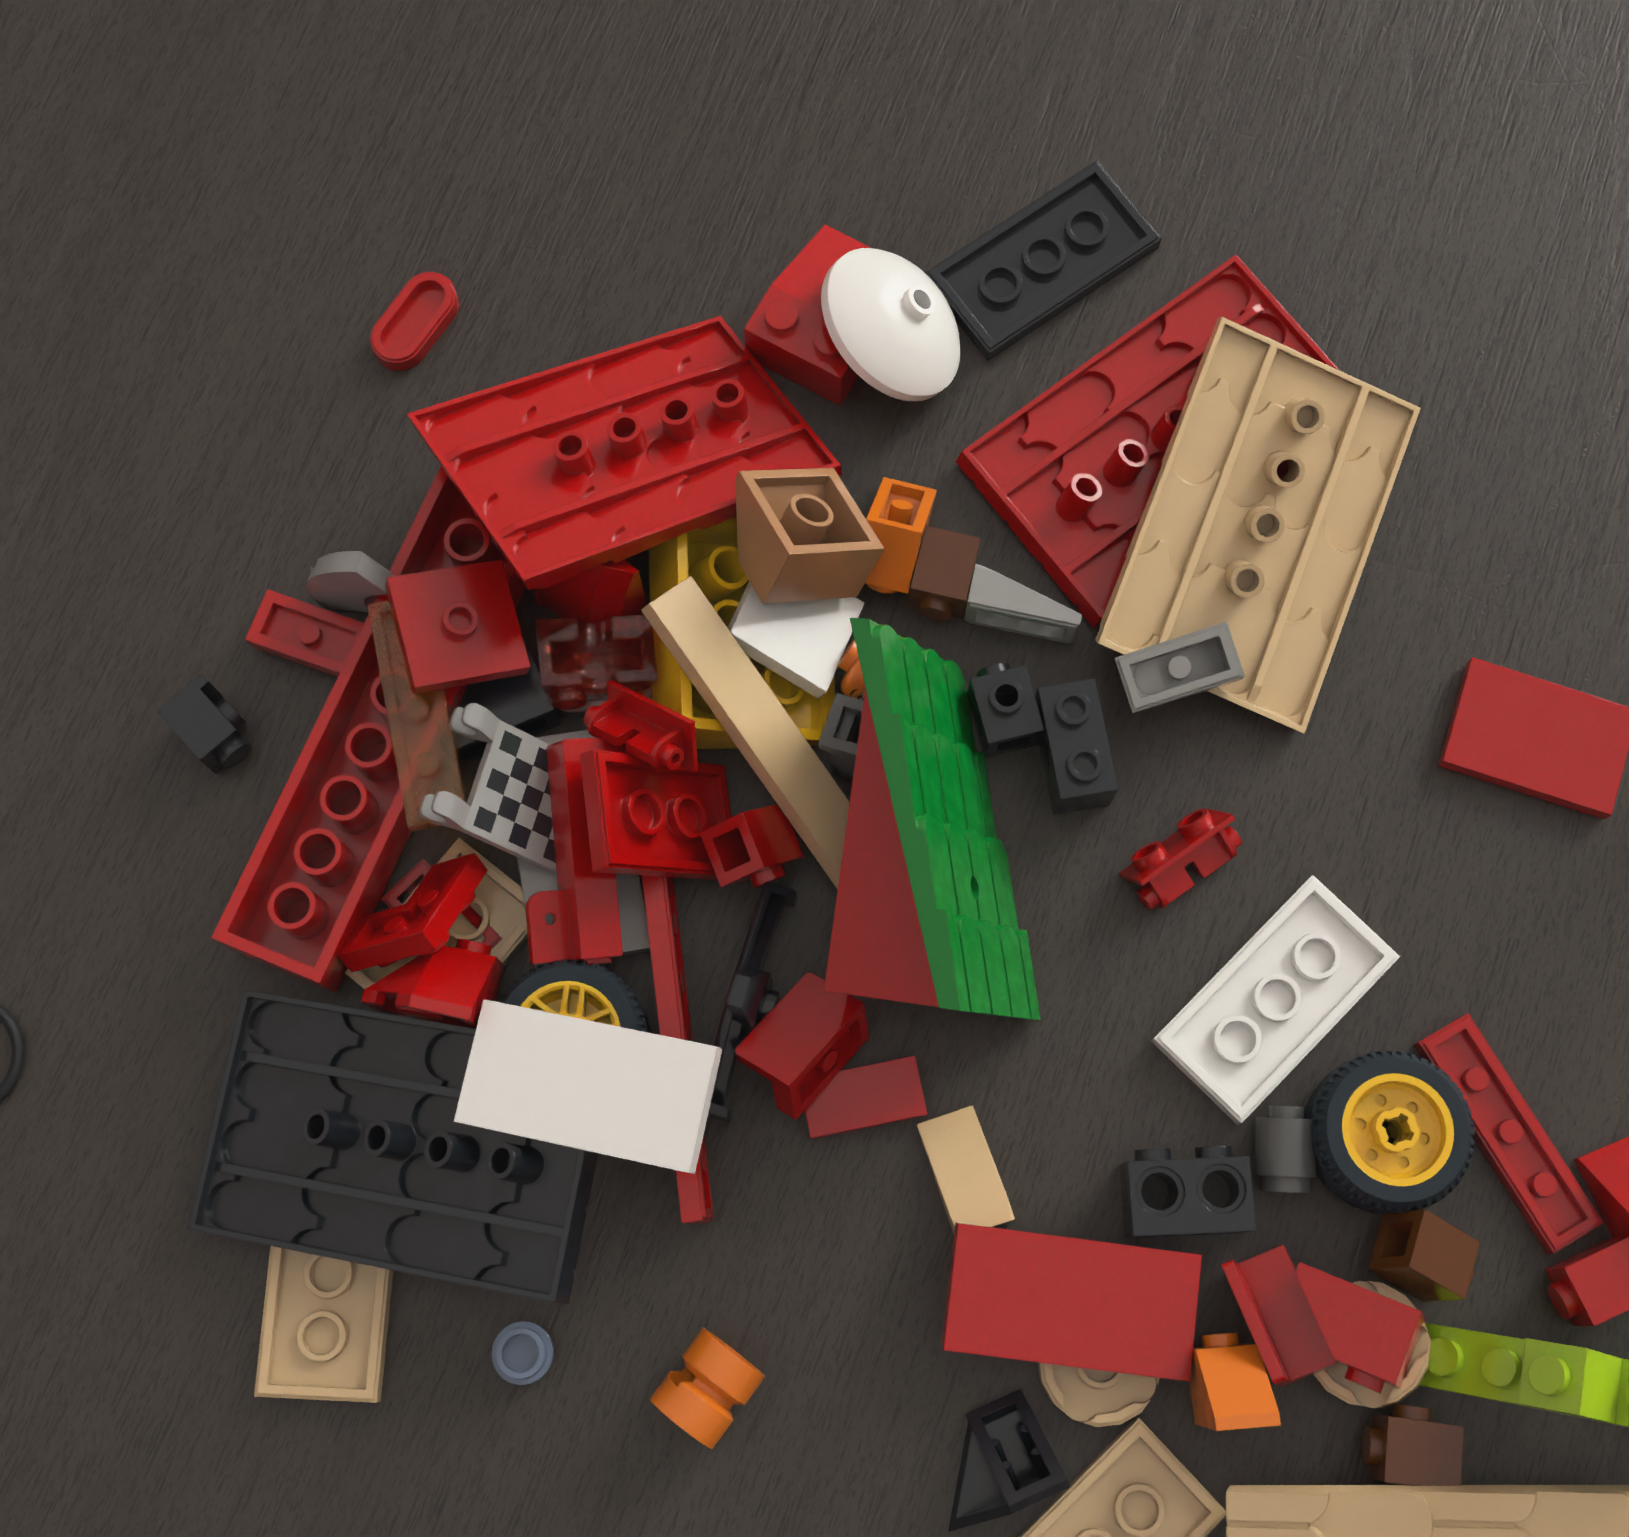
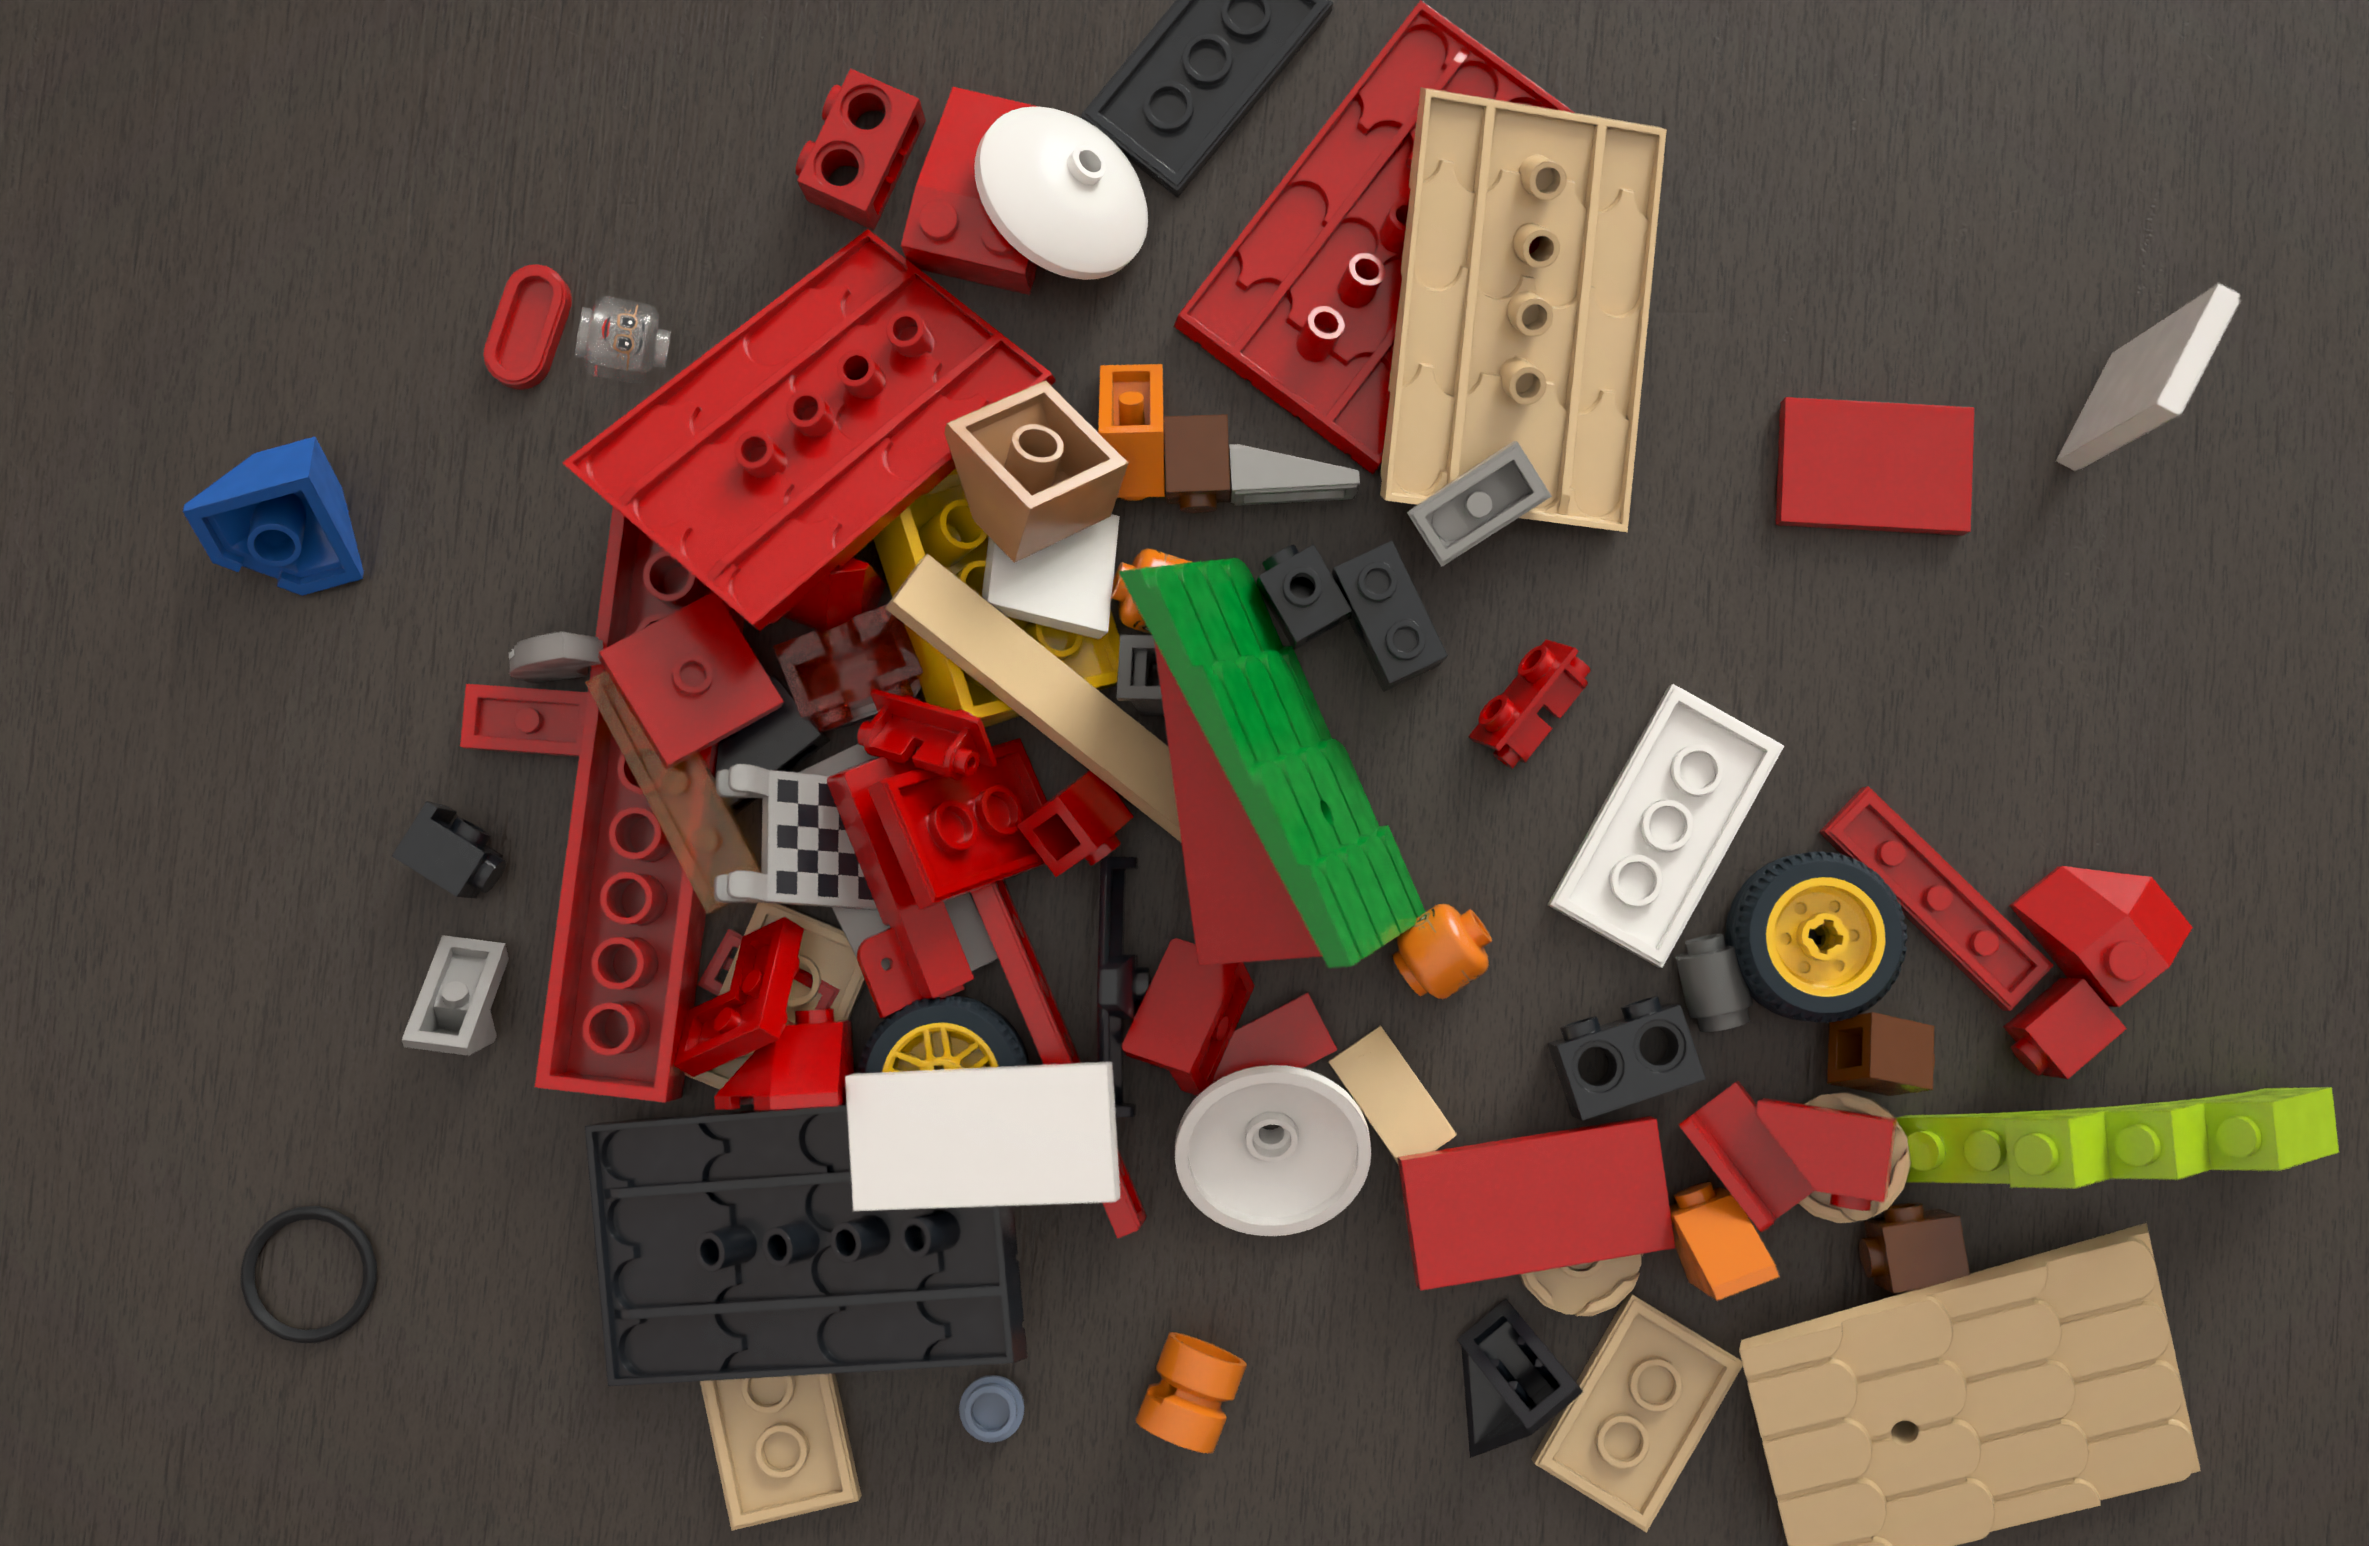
camera: 15 degrees left, 10 degrees up
(160, 416) = (280, 518): none -> blue slope
(172, 847) = (458, 997): none -> light grey slope
(488, 348) = (621, 340): none -> clear head
(744, 256) = (875, 152): none -> red brick
(839, 1215) = (1275, 1177): none -> white dish
(1045, 1051) = (1443, 951): none -> orange head

